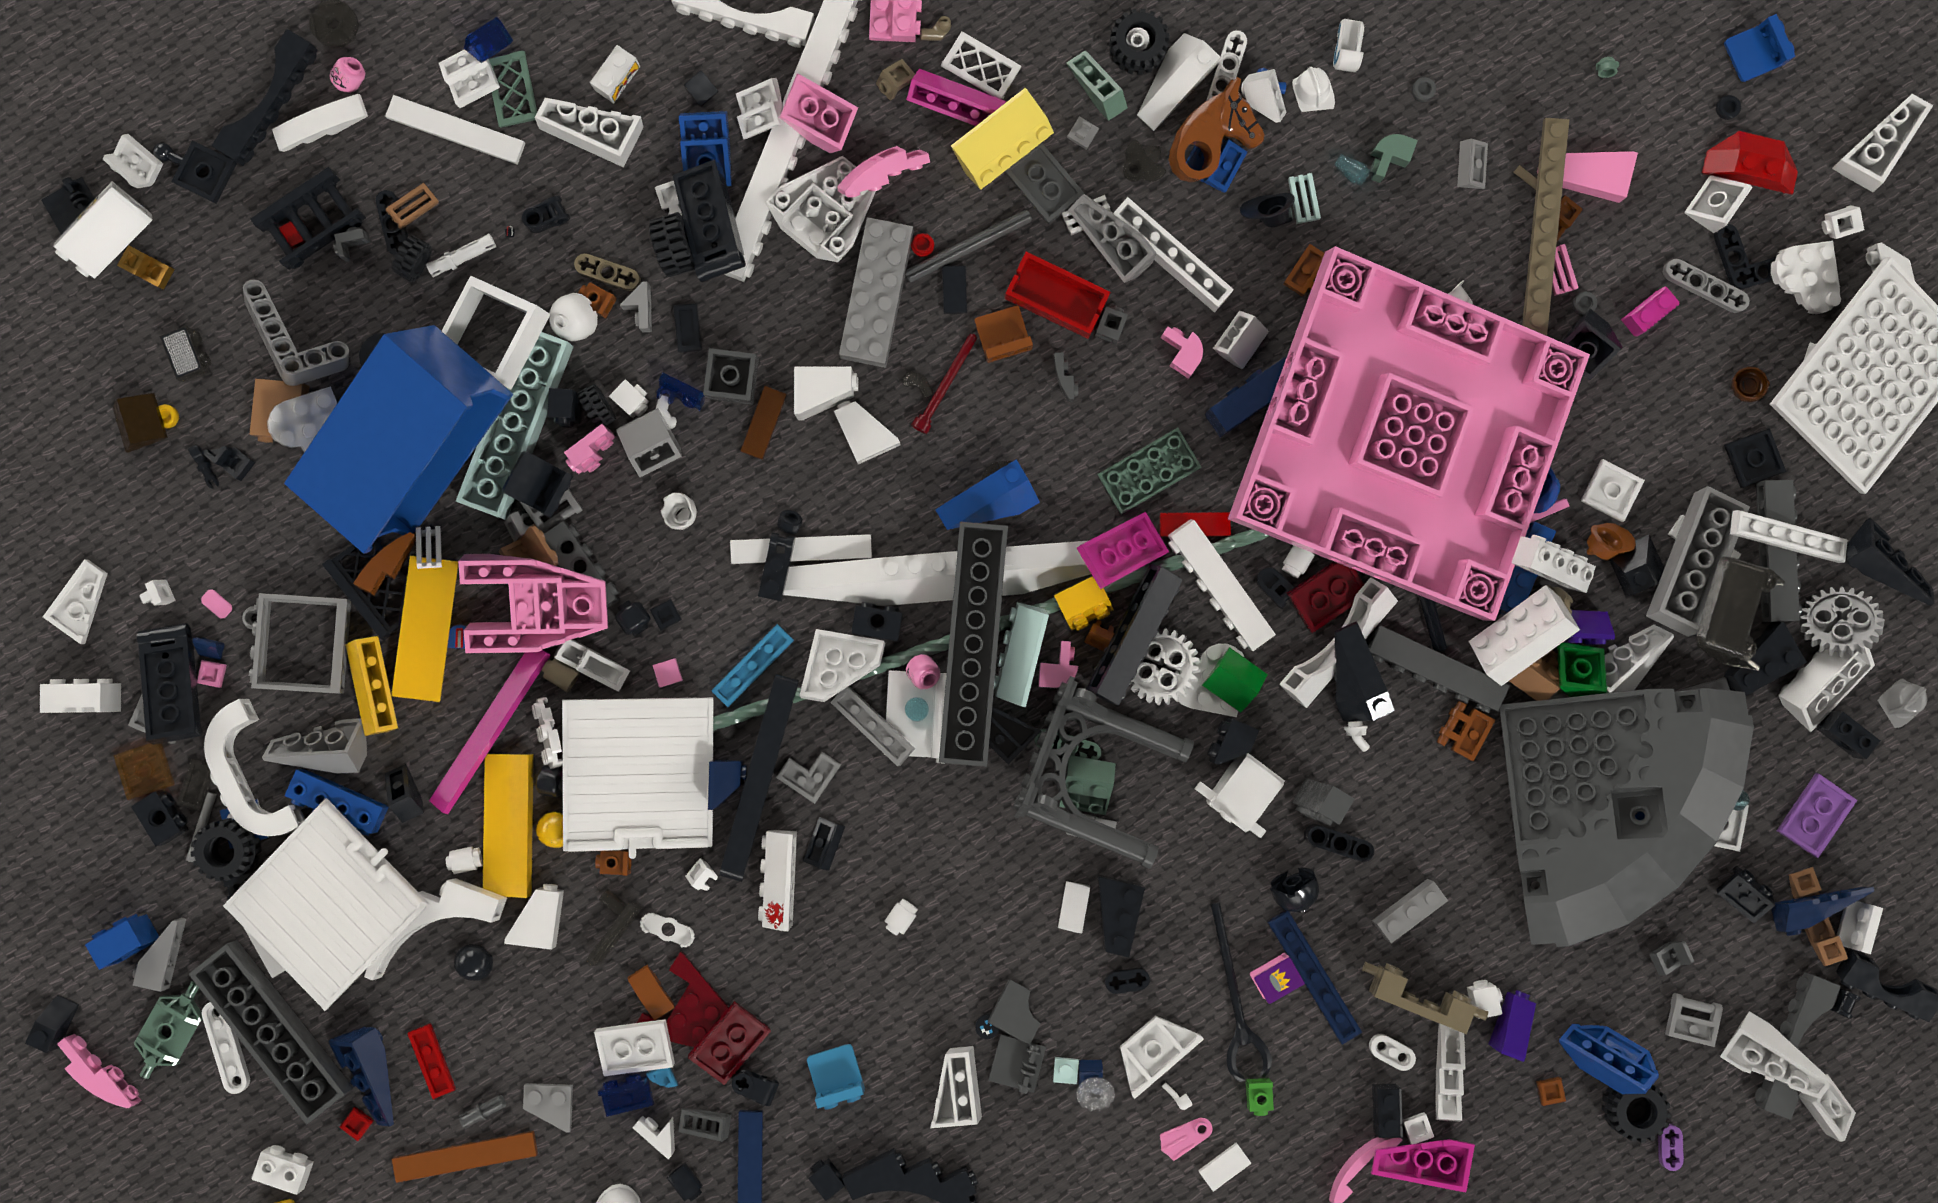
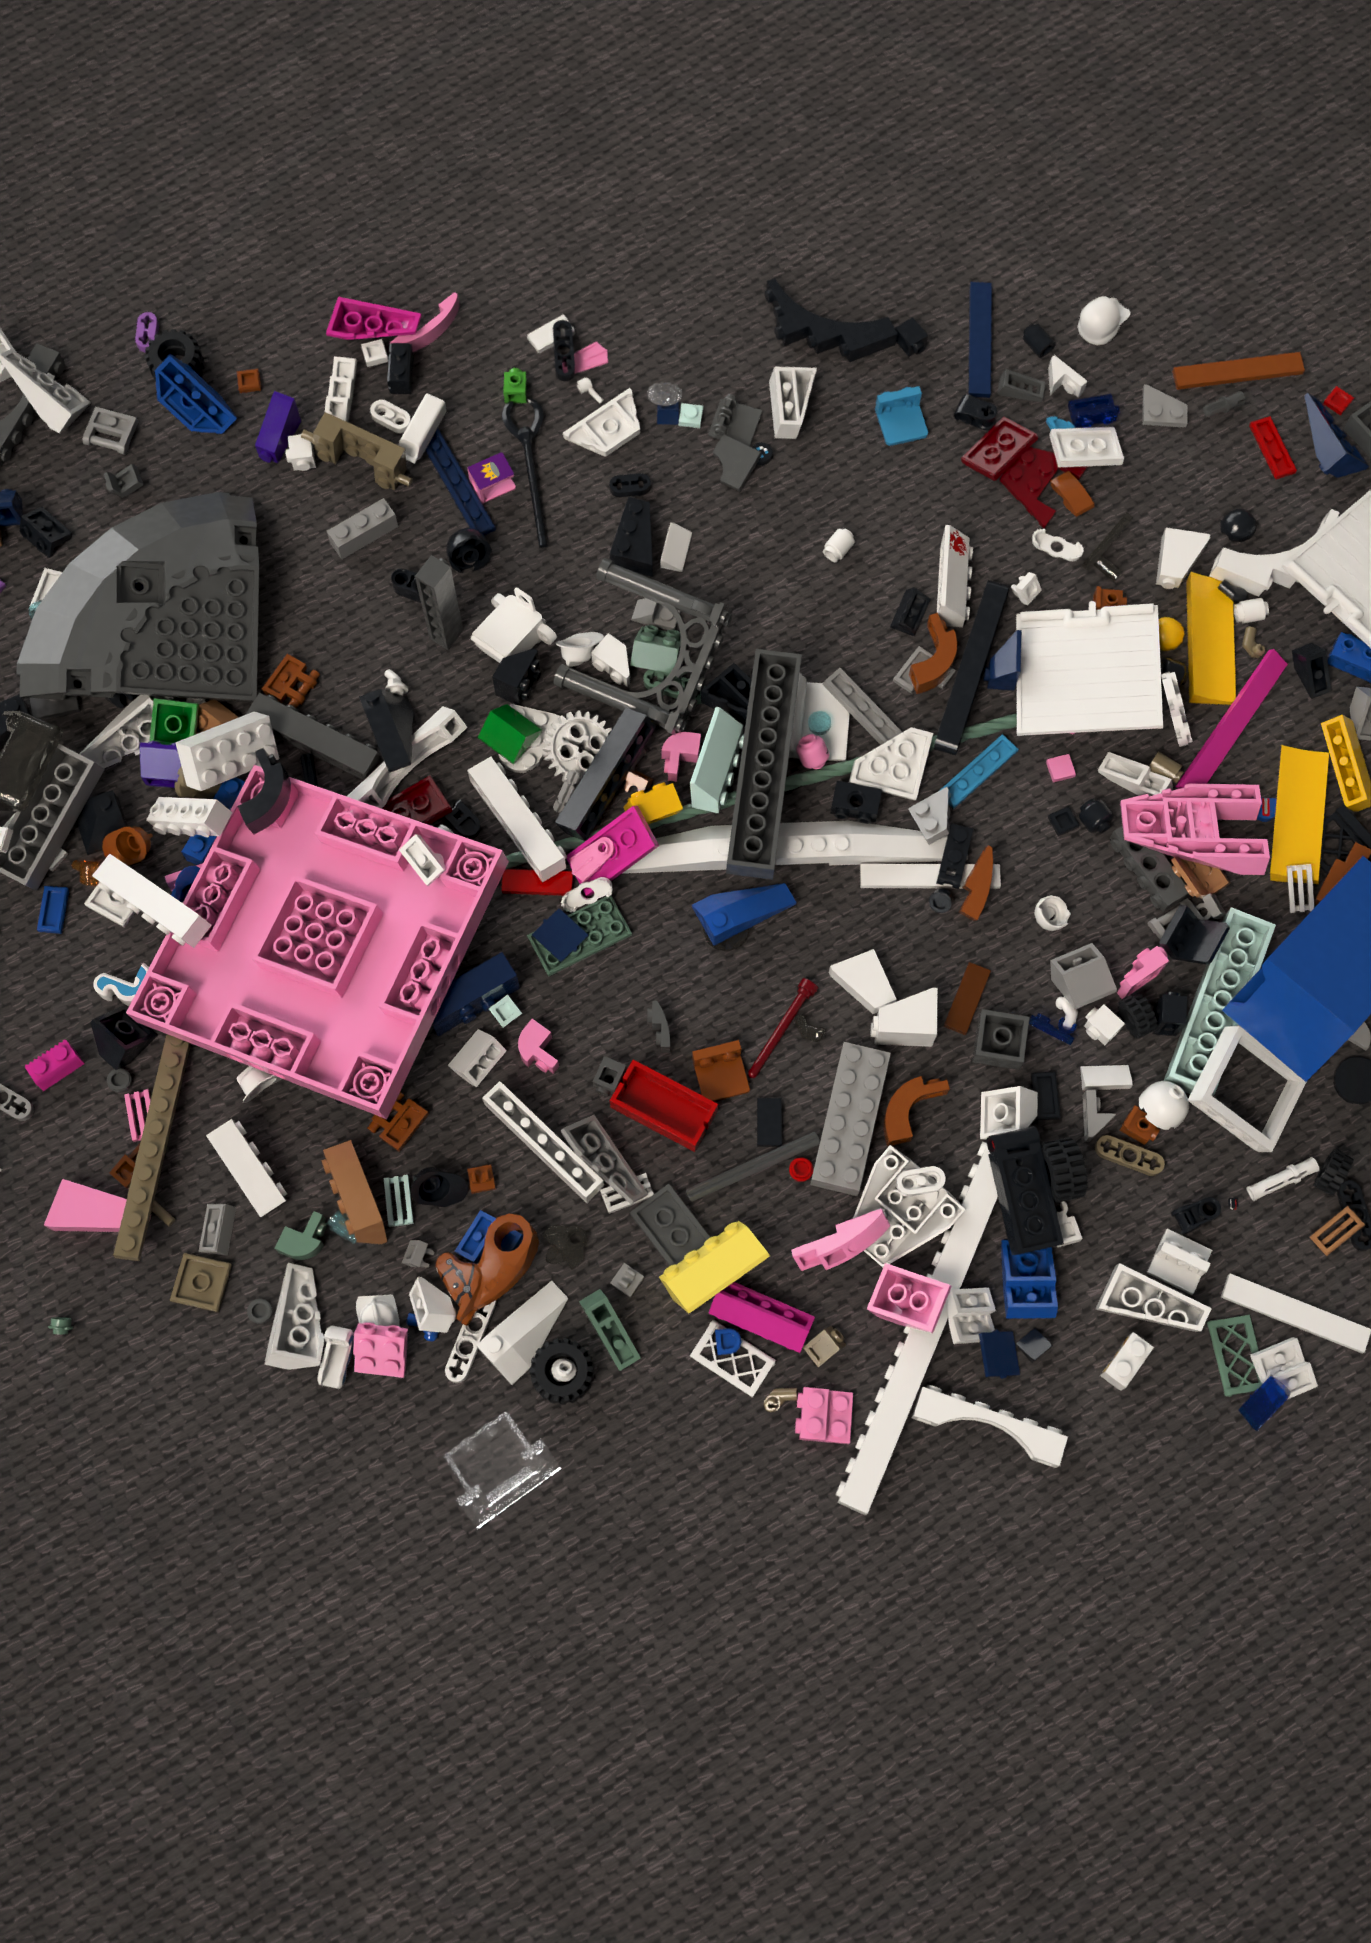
camera: 175 degrees left, 15 degrees down
(467, 822) = (1252, 648): none -> dark tan arm
(481, 877) = (1236, 594): none -> black arm
(562, 172) = (1179, 1261): none -> white bracket
(628, 348) = (1106, 1077): none -> white slope
(724, 305) = (1007, 1110): none -> white slope
(733, 77) = (999, 1354): none -> dark blue piece
(753, 534) = (978, 885): none -> dark orange slope
(789, 782) = (933, 671): none -> dark orange arch
(799, 609) = (933, 815): none -> light grey wing
(808, 226) = (919, 1180): none -> white plate
(827, 310) = (896, 1120): none -> dark orange arch
(986, 77) = (727, 1341): none -> blue tile
(1132, 772) = (611, 657): none -> white slope
(1143, 543) = (591, 858): none -> bright pink piece
(1157, 507) = (574, 899): none -> white piece
(1169, 465) = (560, 935): none -> dark blue piece
(1170, 784) = (579, 647): none -> white piece
(1172, 618) = (568, 787): none -> light grey axle
(1205, 1161) = (559, 358): none -> black beam
(1217, 387) = (505, 1011): none -> light aqua plate
(1227, 222) = (481, 1179): none -> dark orange tile
(1284, 145) = (415, 1253): none -> light grey tile
(1308, 53) = (380, 1349): none -> bright pink plate
(1311, 504) = (423, 859): none -> white slope
(1348, 196) = (354, 1194): none -> medium nougat wedge
(1358, 1032) = (422, 427): none -> white piece
(1388, 75) = (296, 1328): none -> white wedge
(1453, 219) = (246, 1167): none -> white wedge
(1472, 579) = (273, 797): none -> black arch
(1482, 113) = (201, 1282): none -> dark tan tile
(1580, 469) = (152, 901): none -> white brick
(1593, 390) = (108, 985): none -> animal
(1645, 512) = (86, 869): none -> clear orange piece
(1674, 474) = (53, 909): none -> blue tile

